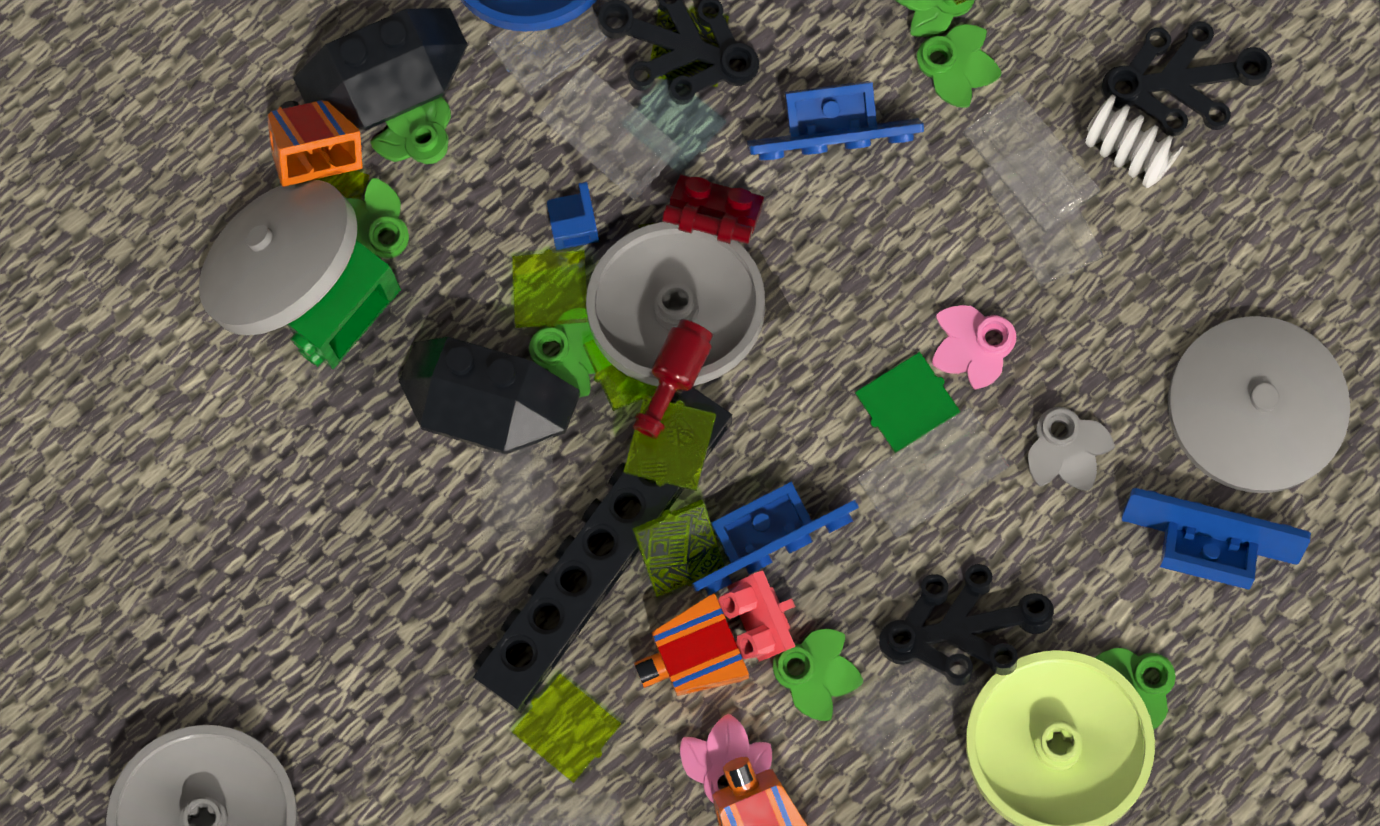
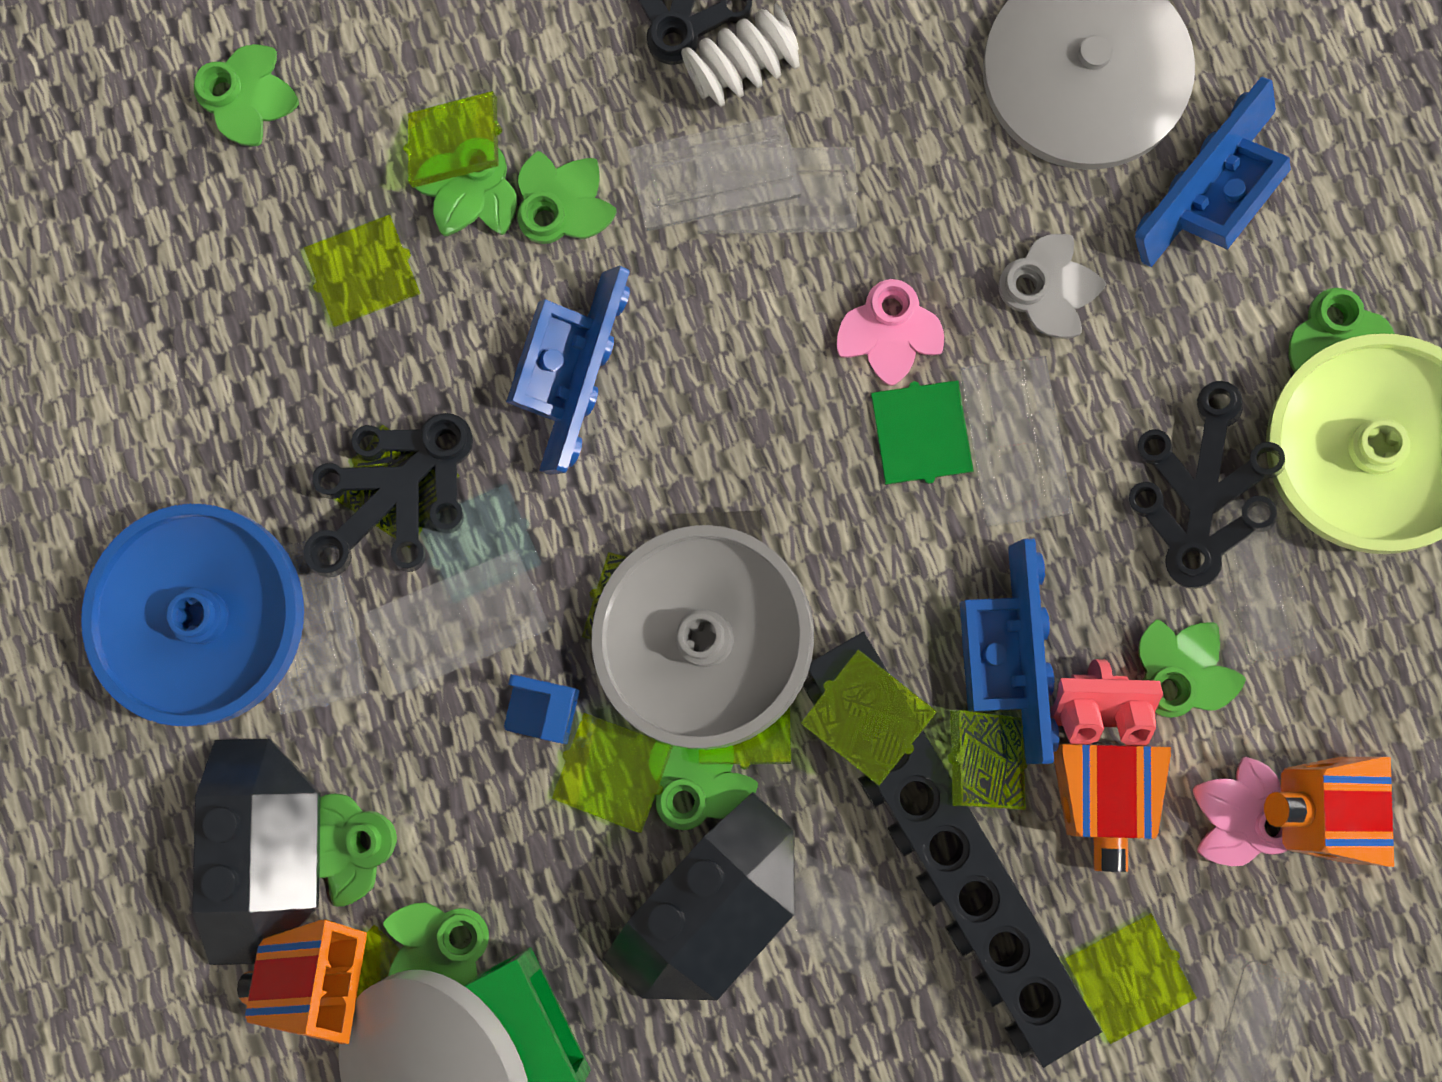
camera: 65 degrees left, 5 degrees up
(676, 369) = (795, 673): dark red piece -> none
(713, 209) = (610, 544): dark red plate -> none

